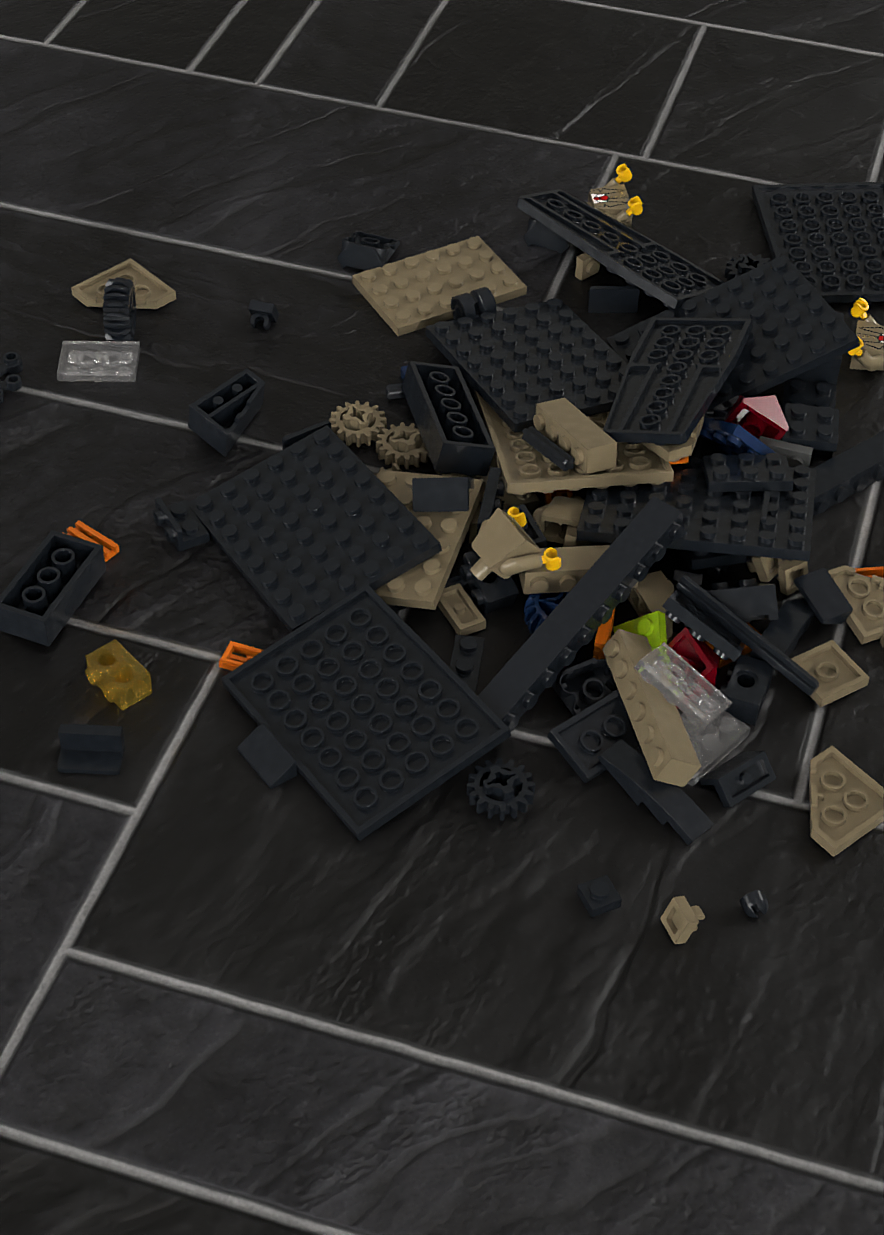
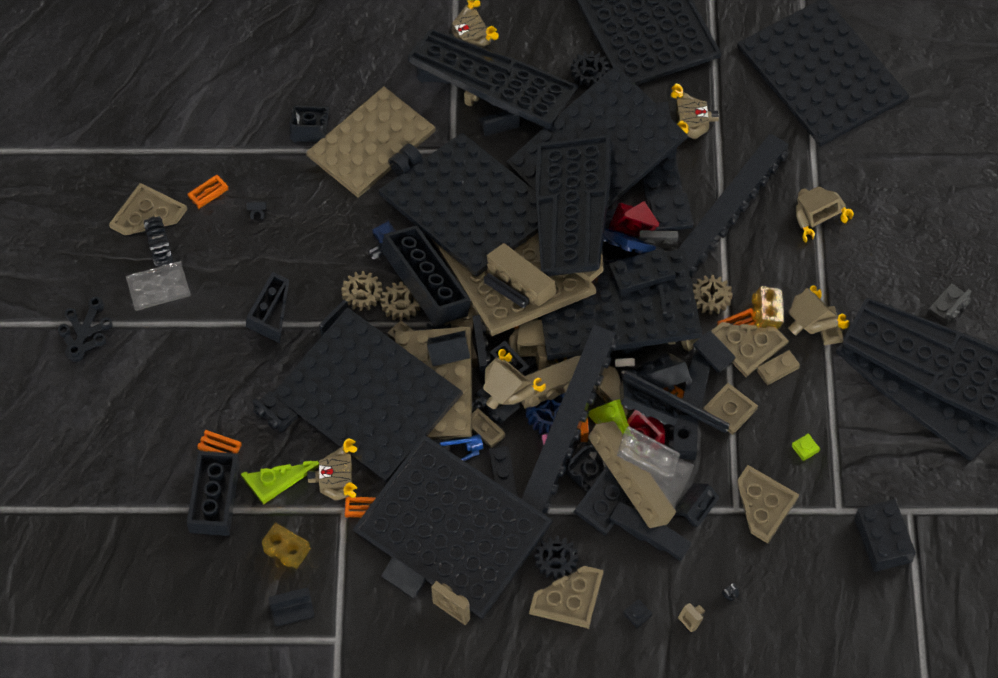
camera: 15 degrees left, 15 degrees up
(148, 597) = (273, 481): none -> lime wing
(211, 288) = (210, 192): none -> orange tile
(229, 608) = (336, 473): none -> dark tan torso
(319, 799) = (451, 603): none -> dark tan plate
(434, 620) = (471, 444): none -> blue plant
(501, 846) = (569, 598): none -> dark tan plate
(840, 536) = (720, 291): none -> dark tan gear

